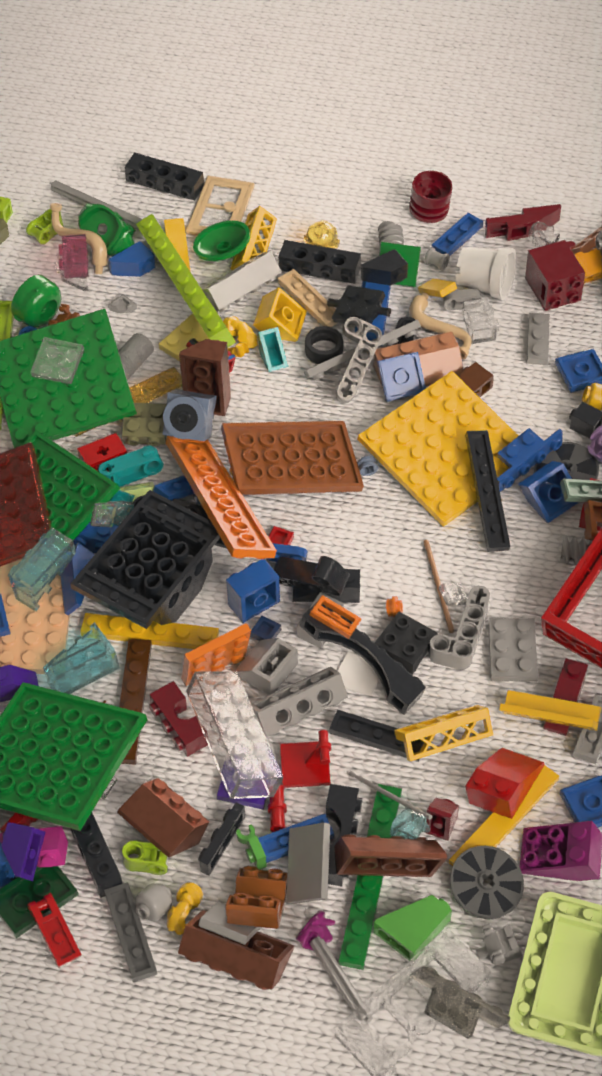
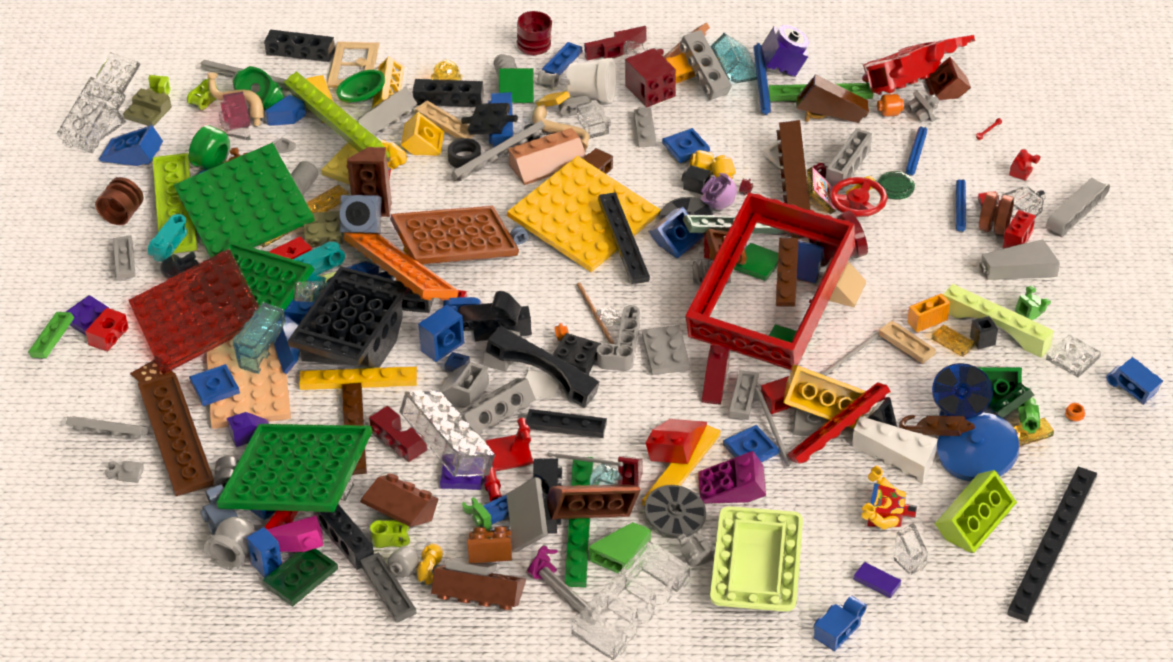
camera: 10 degrees left, 10 degrees down
(22, 849) = (288, 530): dark purple slope -> none
(54, 931) = (324, 593): red plate -> none
(57, 360) = (239, 185): clear plate -> none
(82, 663) = (308, 403): clear light blue wedge -> none
(217, 653) = (423, 375): orange plate -> none
(221, 838) = (450, 511): black plate -> none
(272, 349) = (420, 160): teal slope -> none
(334, 620) = (515, 336): orange tile -> none
(356, 363) = (495, 159): light grey beam -> none
(385, 269) = (506, 88): black slope -> none
(401, 376) = (534, 166): tile -> none
(443, 723) = (617, 406): yellow fence -> none
(456, 1006) = (667, 589): clear smoke bracket -> none
(524, 454) = (650, 208): blue bracket -> none
(551, 710) = (705, 384): yellow fence -> none

